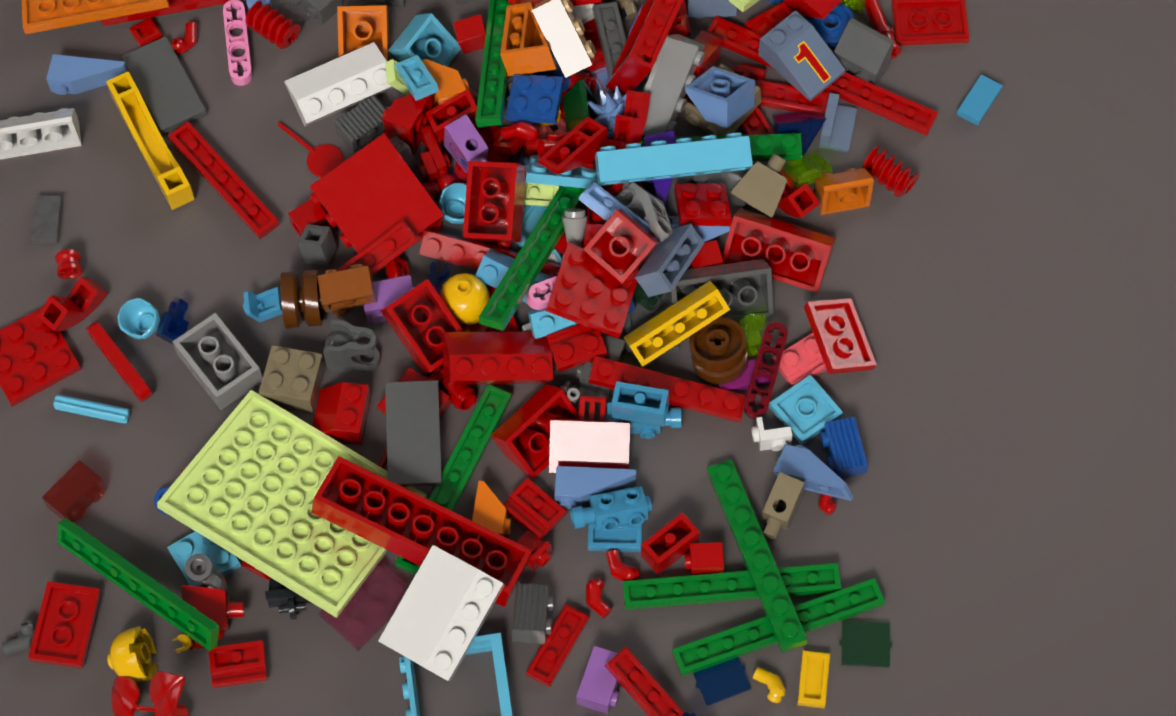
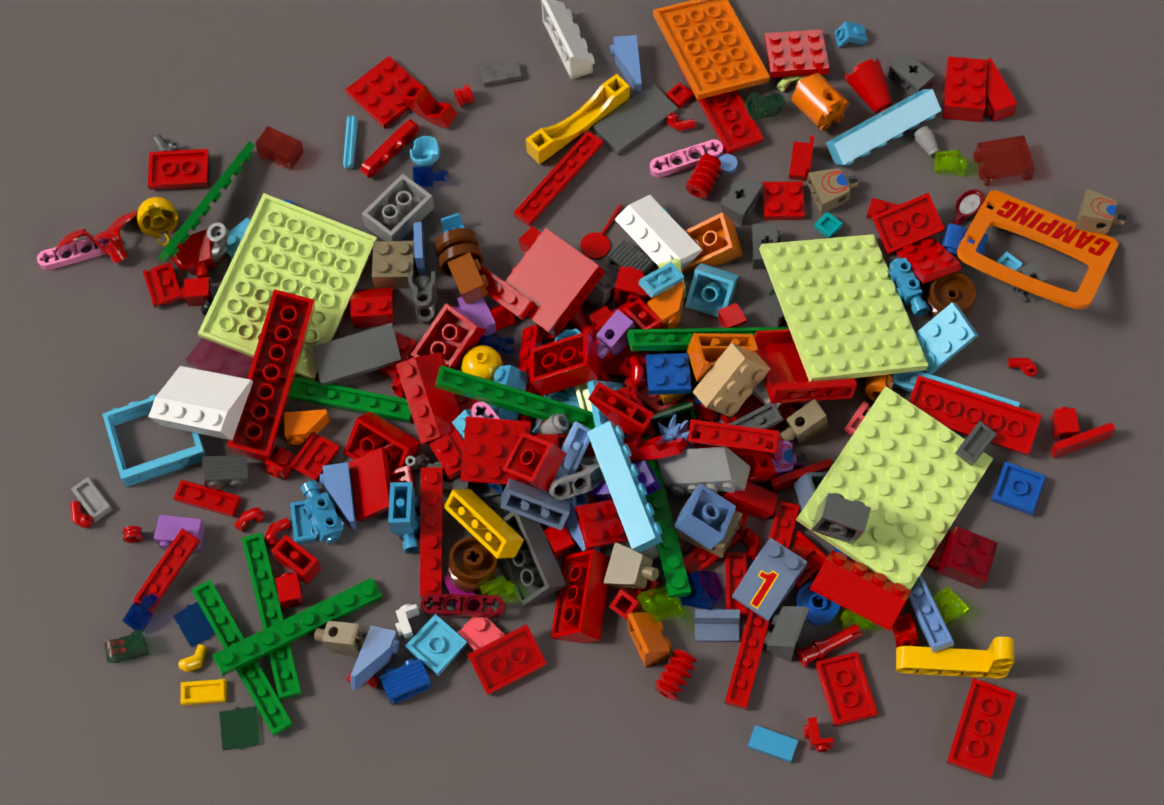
camera: 80 degrees right, 0 degrees up
(262, 620) = (196, 291): none -> red brick
(283, 337) = (419, 249): none -> medium blue tile
(317, 245) = (510, 252): dark grey brick -> none
(979, 58) = (811, 733): none -> red bracket

